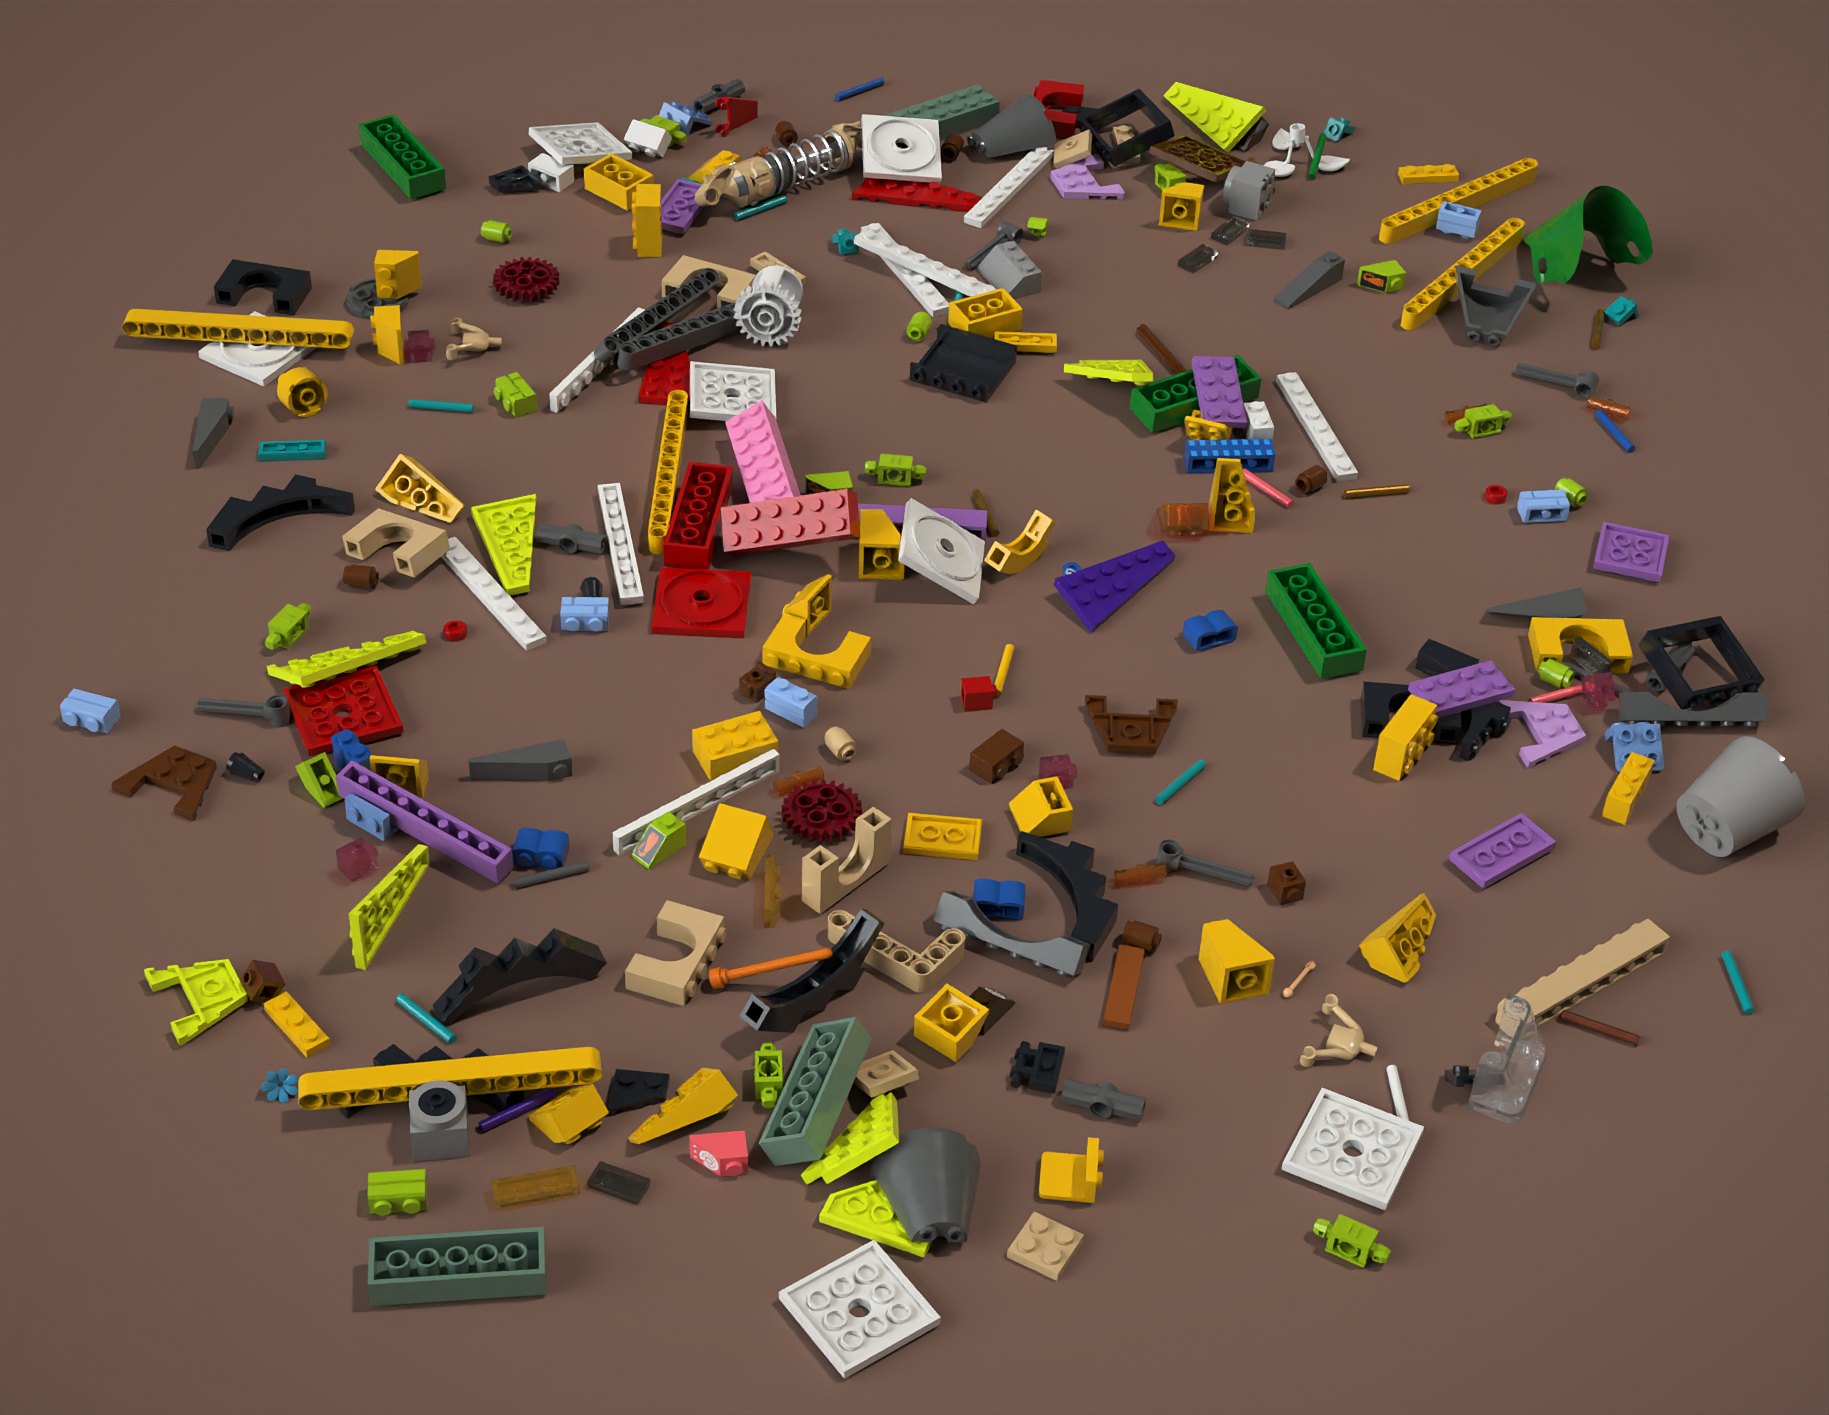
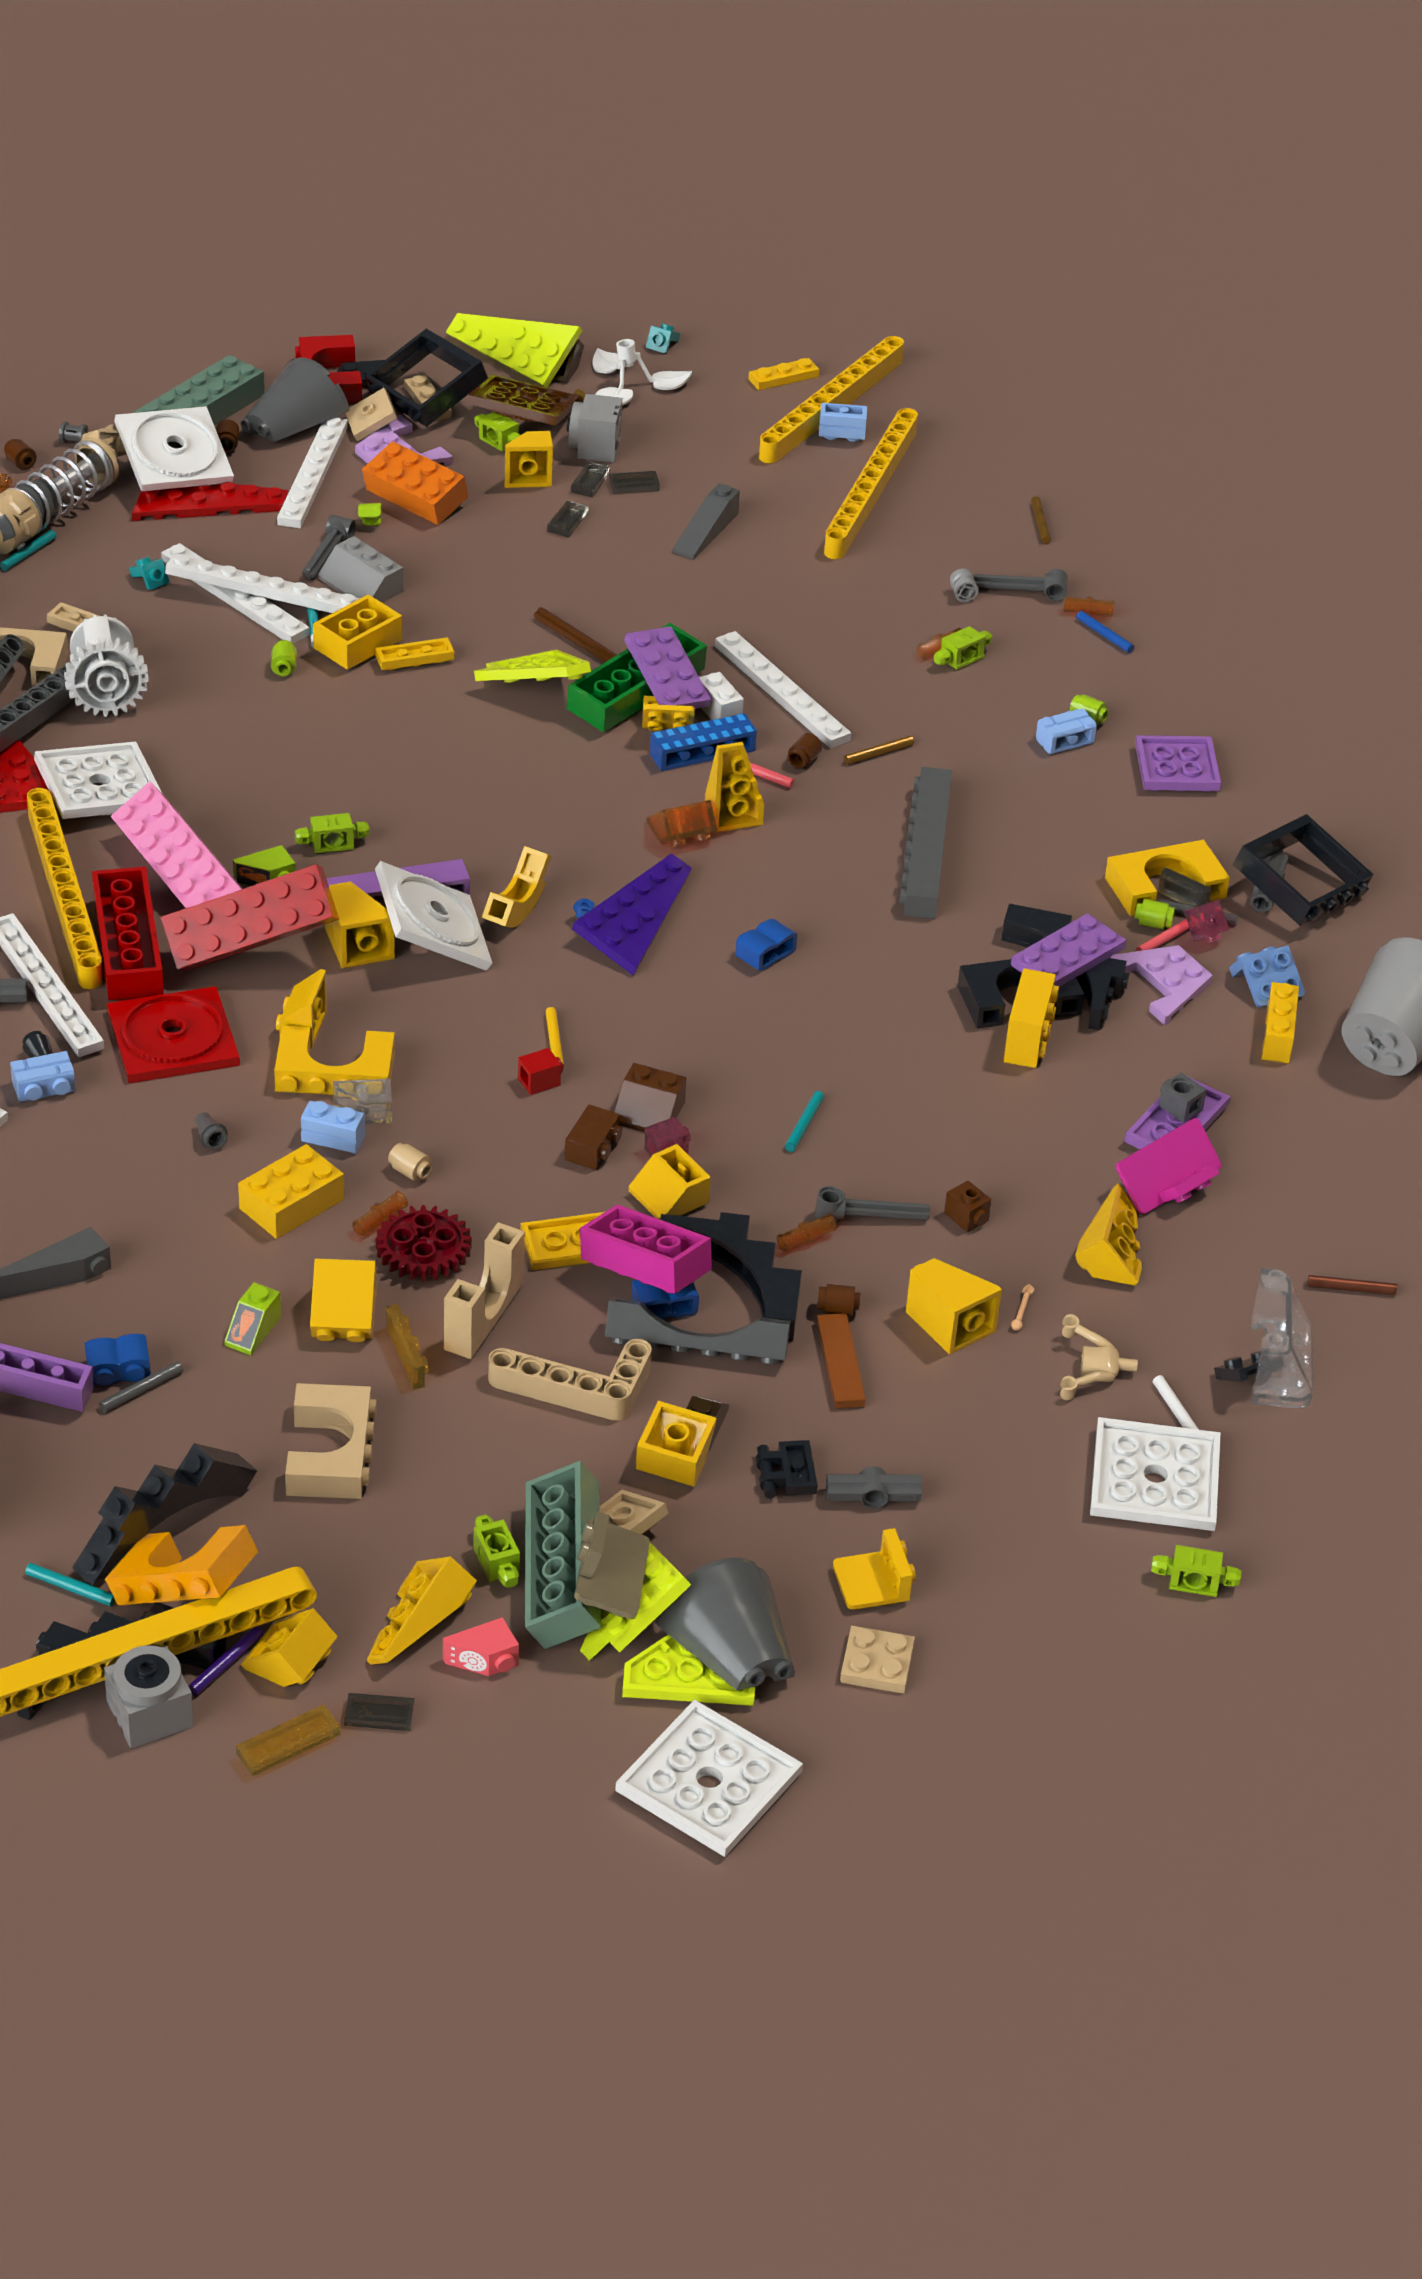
camera: 20 degrees left, 0 degrees up
(397, 1191) = (133, 1786): lime brick -> none
(457, 1266) = (244, 1849): sand green brick -> none
(497, 1028) = (155, 1574): none -> light orange arch
(637, 1090) = (353, 1603): black wing -> none
(695, 686) = (211, 1132): none -> dark grey cone
(701, 798) = (277, 1262): white plate -> none
(720, 977) = (394, 1455): orange piece -> none
(755, 682) = (283, 1112): reddish brown brick -> none
(784, 1007) = (484, 1471): black arch -> none
(829, 685) = (365, 1096): none -> clear slope
(833, 121) = (71, 432): none -> dark grey bush
(842, 1110) = (611, 1567): none -> dark tan bracket
(859, 89) = (82, 384): blue bar -> none
(965, 363) = (355, 692): black panel -> none
(982, 506) = (448, 855): pearl gold bar -> none
(992, 856) = (645, 1248): none -> dark pink brick
(1057, 733) = (649, 1096): none -> slope
(1083, 208) = (415, 483): none -> orange brick
(1131, 731) = (724, 1077): reddish brown wing -> none
(1315, 621) = (878, 909): green brick -> none
(1317, 156) = (653, 374): green bar -> none
(1382, 276) = (785, 502): lime slope -> none
(1384, 572) = (926, 845): none -> dark grey brick
(1475, 889) = (1170, 1167): none -> dark pink bracket
(1489, 310) = (920, 520): dark grey cone -> none
(1496, 494) = (1008, 728): red tile -> none
(1506, 370) = (963, 585): none -> light grey wheel
(1510, 832) = (1182, 1097): none -> dark grey brick
(1555, 605) = (1128, 837): dark grey wedge -> none
(1593, 972) = (1323, 1226): tan brick -> none
(1600, 211) = (976, 418): green piece -> none
(1621, 310) = (1059, 494): teal bracket -> none
(1741, 707) = (1264, 930): dark grey arch -> none

